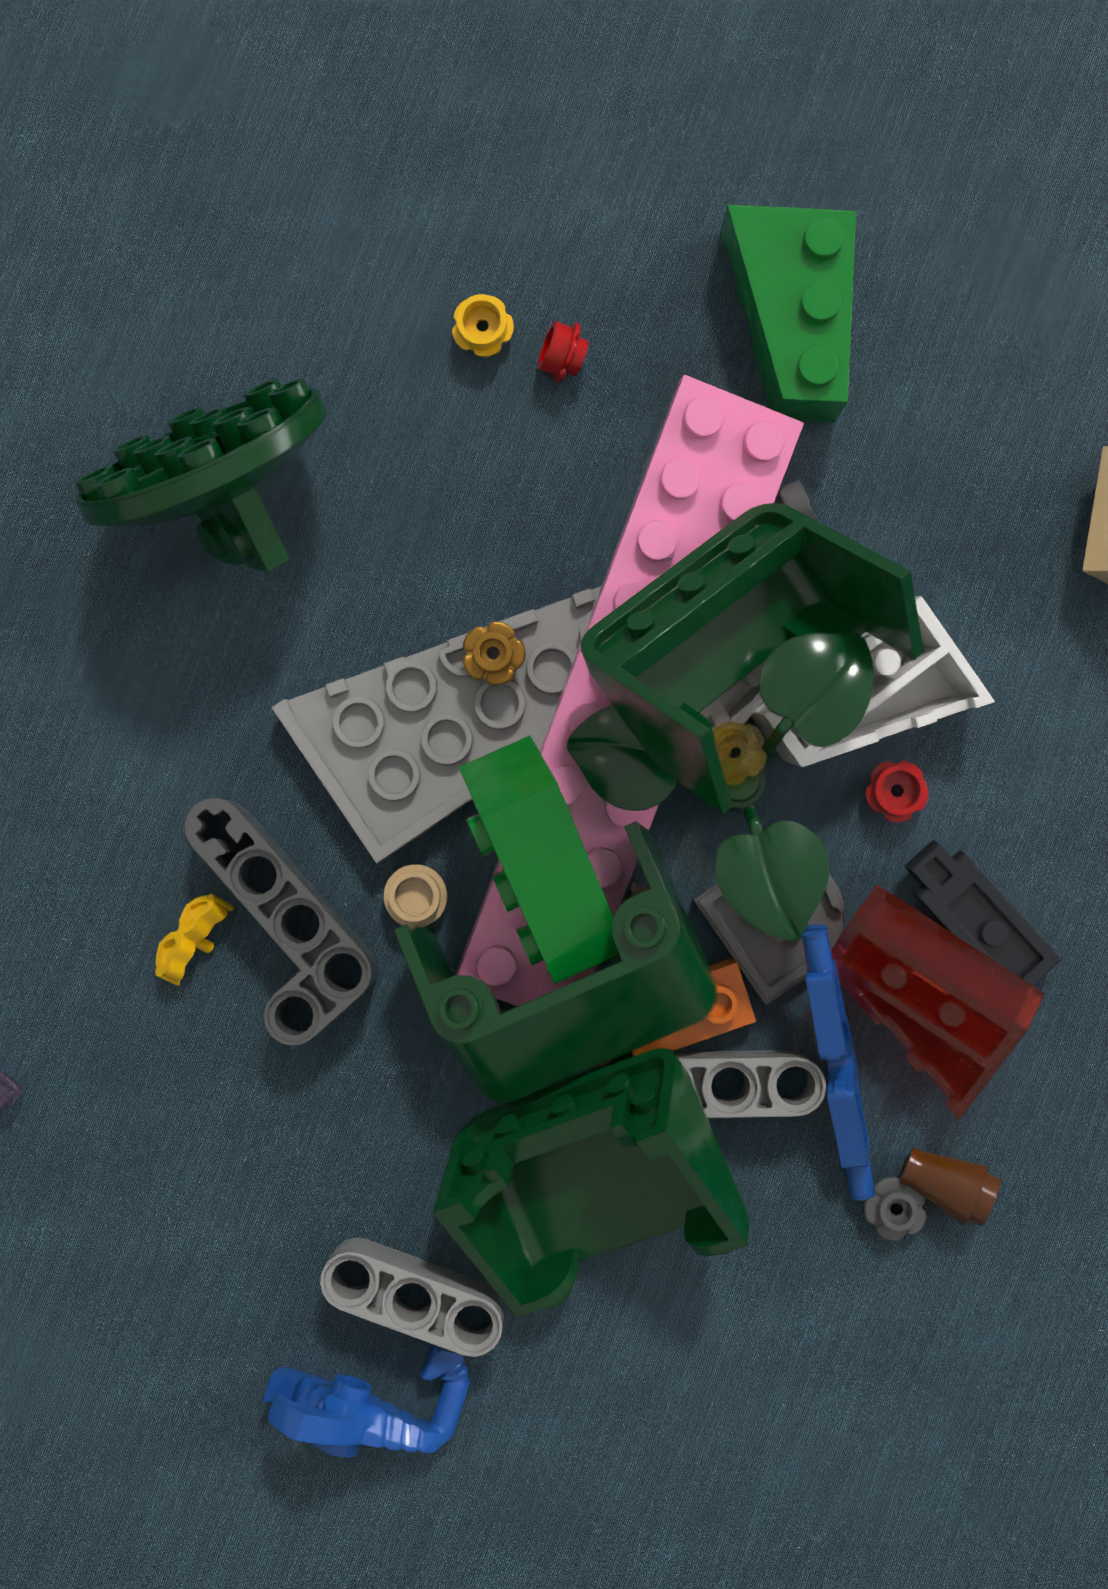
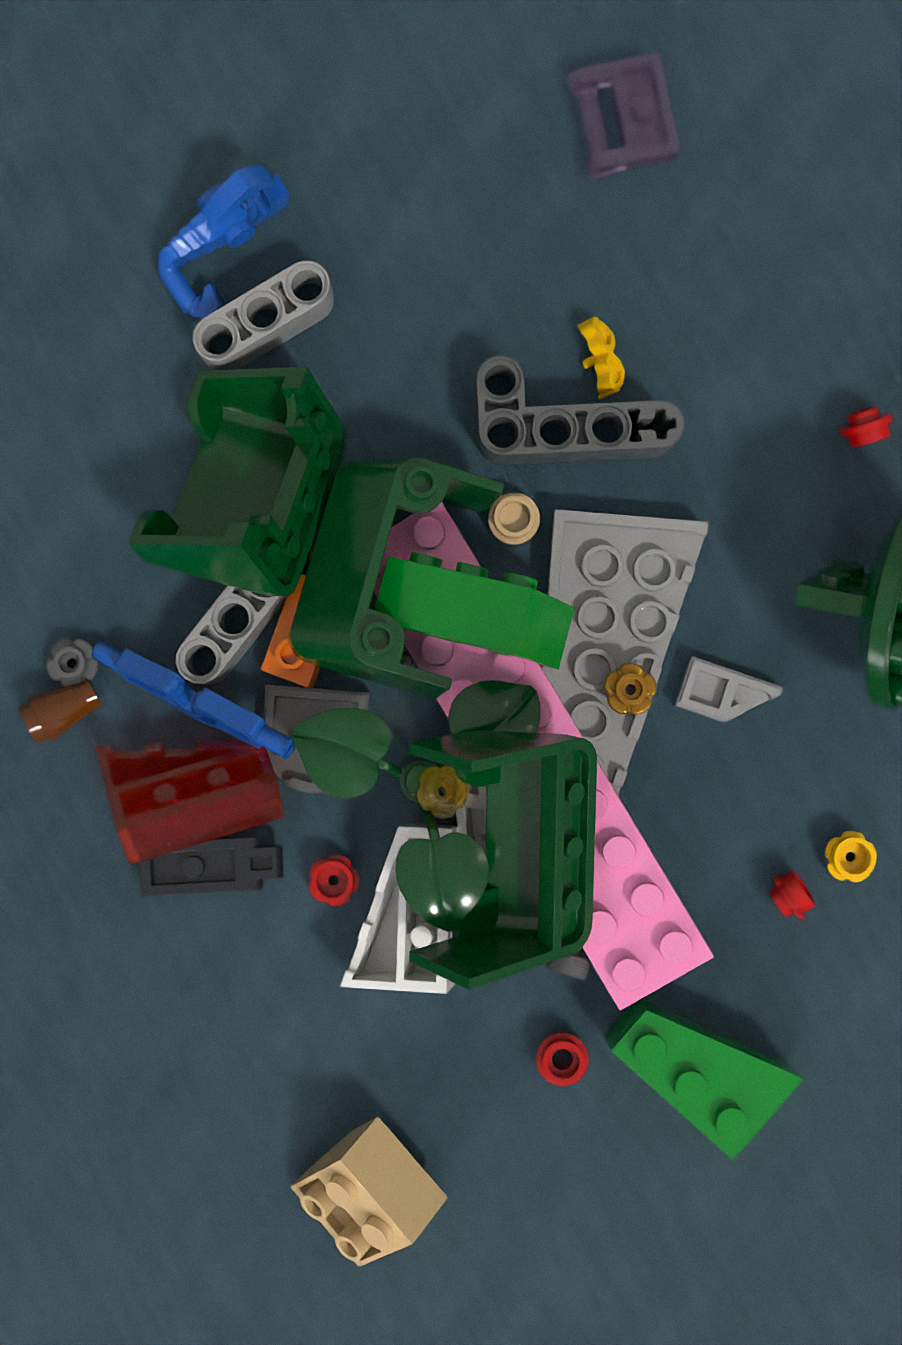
camera: 125 degrees right, 0 degrees up
(58, 629) = (866, 426): none -> red plate
(423, 568) = (720, 691): none -> light grey tile
(893, 426) = (568, 1073): none -> red plate

